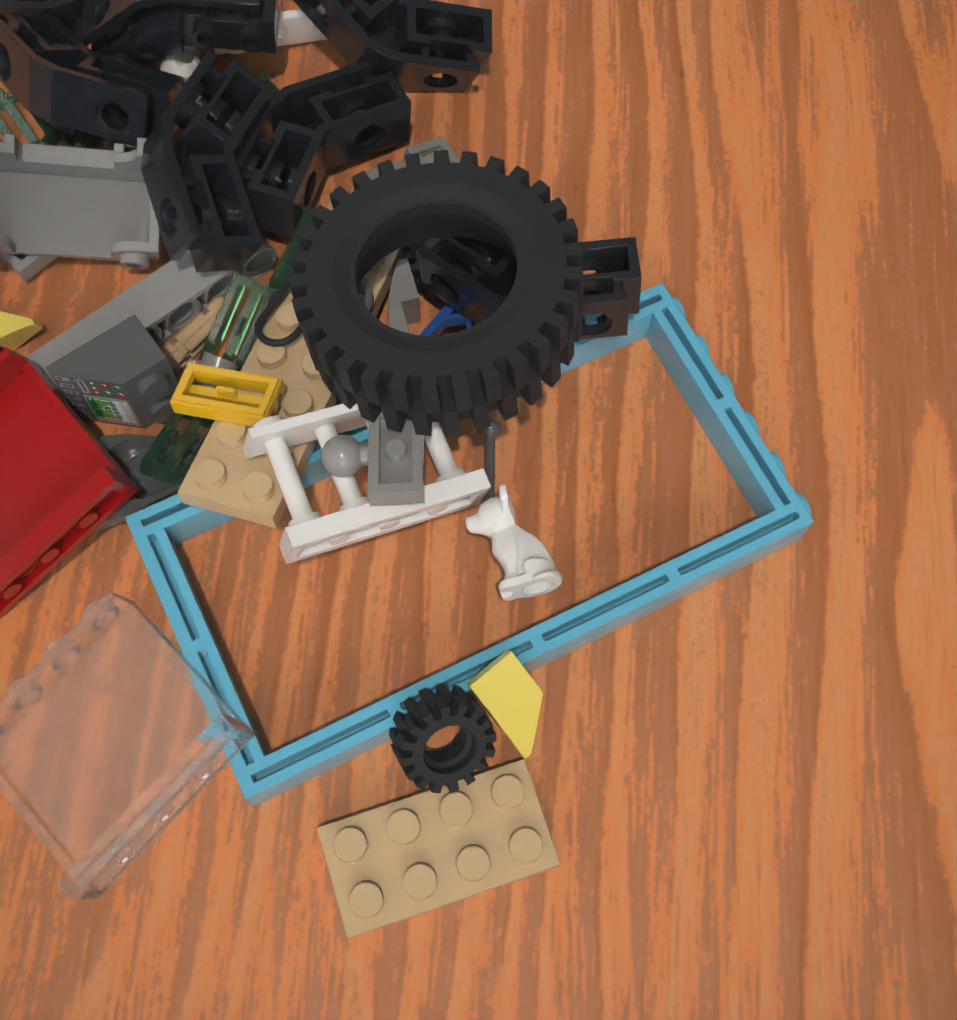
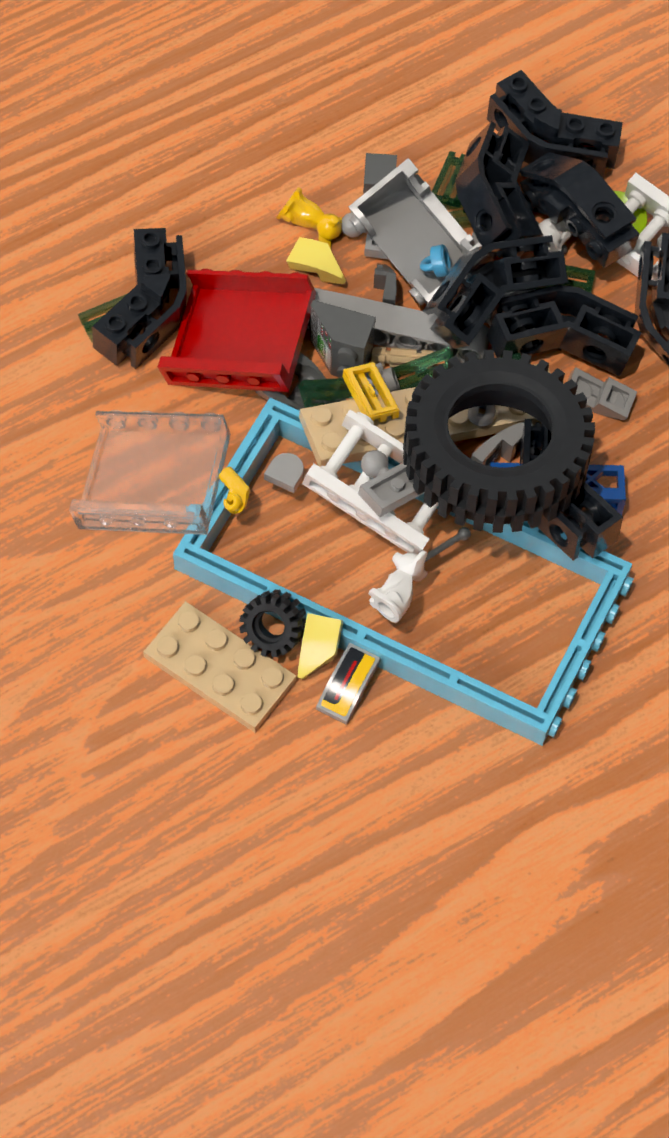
camera: 55 degrees right, 5 degrees down
(85, 277) = (386, 280): none -> dark grey slope
(117, 204) = (438, 261): none -> dark azure tile
(227, 650) = (238, 491): none -> yellow arm
(244, 571) = (285, 471): none -> light grey tile
(579, 702) = (348, 683): none -> slope

